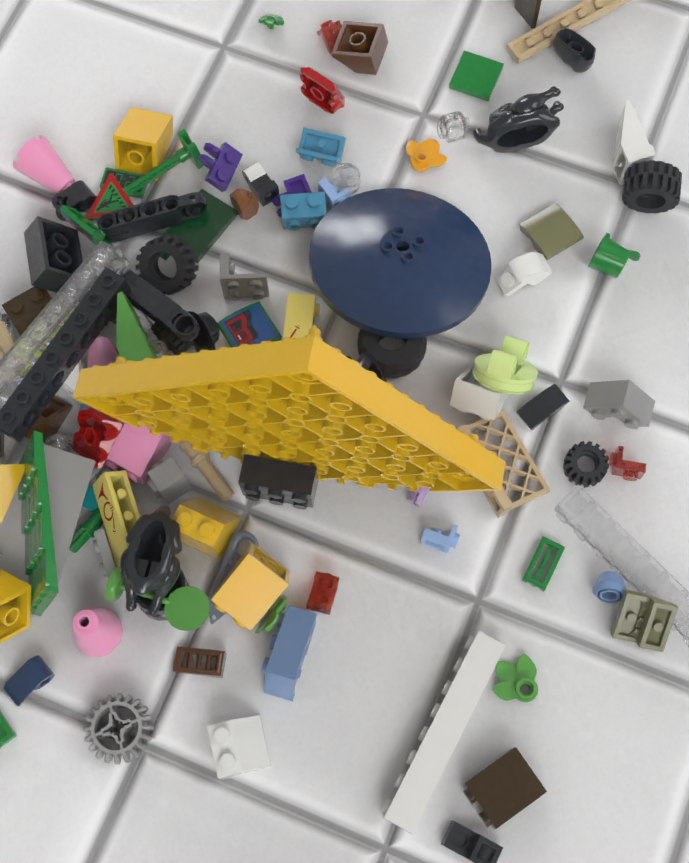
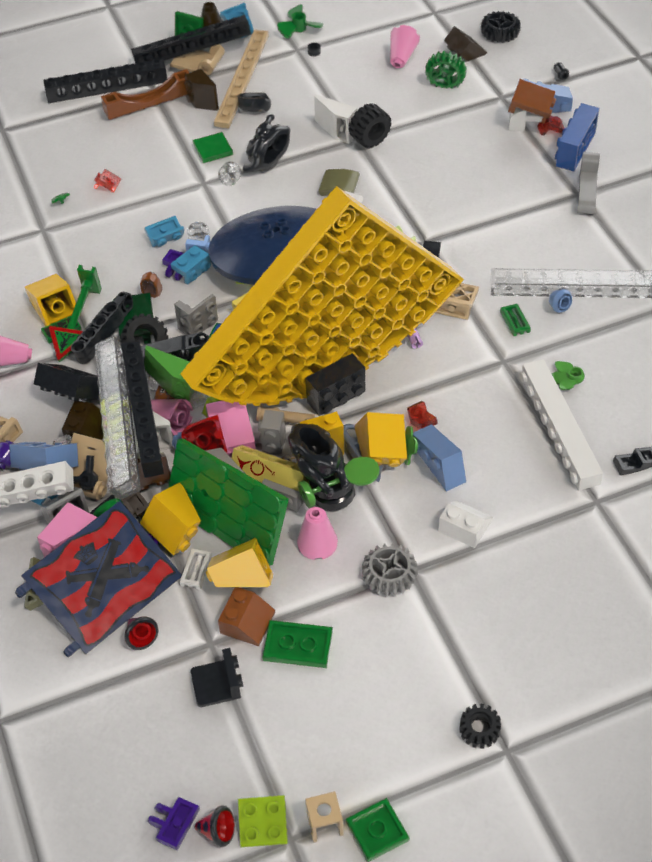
camera: 45 degrees left, 20 degrees down
(29, 677) = (307, 595): dark blue panel -> none
(76, 196) = (40, 353): black piece -> none
(83, 225) = (70, 356): green slope -> none
(219, 665) = (404, 495): reddish brown slope -> none
(222, 167) = (114, 276): dark purple hinge -> none
(260, 183) = (141, 267): black leg -> none
(321, 91) = (134, 204): red slope -> none
(361, 46) = (132, 172): reddish brown slope -> none
(425, 155) = (228, 198): light orange plate -> none
(436, 539) = (451, 348): light blue bracket -> none
(503, 789) = (620, 421): dark brown brick -> none
(595, 454) = (482, 255): black tyre -> none
(611, 257) = (384, 170): green hat -> none
(619, 400) = (465, 220): light grey brick -> none
(627, 469) = (503, 248): clear red bracket -> none
(644, 620) = (593, 299): olive slope -> none

